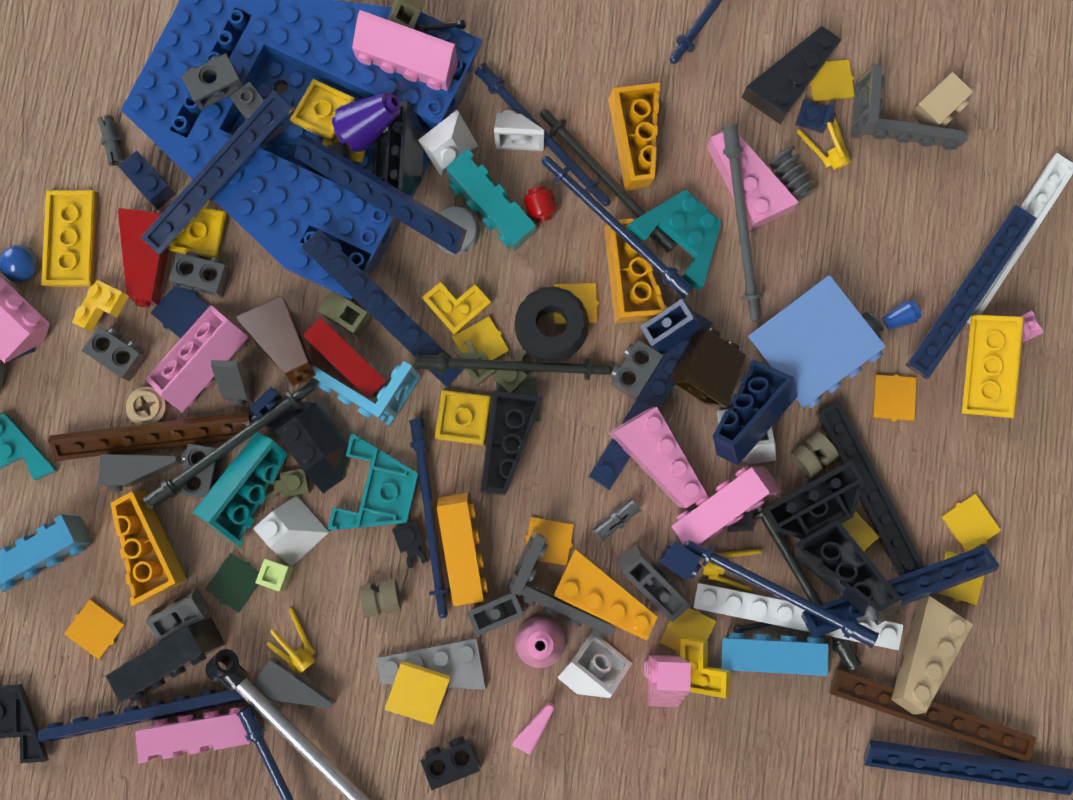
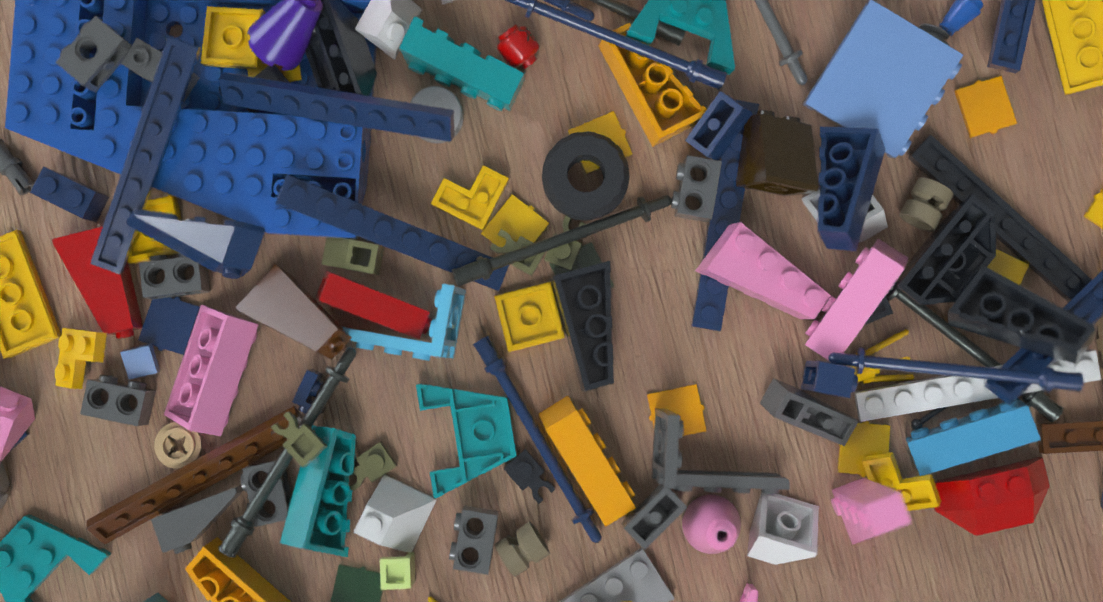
camera: 20 degrees left, 5 degrees up
(144, 329) = (140, 361): none -> medium blue tile
(234, 381) = (264, 381): dark grey slope -> none
(243, 440) = (302, 441): none -> olive plate
(244, 266) = (220, 248): none -> dark blue wedge
(313, 443) = (379, 411): black wedge -> none
(351, 579) = (482, 540): none -> dark grey brick
(599, 595) = (754, 450): light orange wedge -> none
(616, 519) = (741, 360): dark grey pin -> none
(777, 713) = (994, 496): none -> red wedge

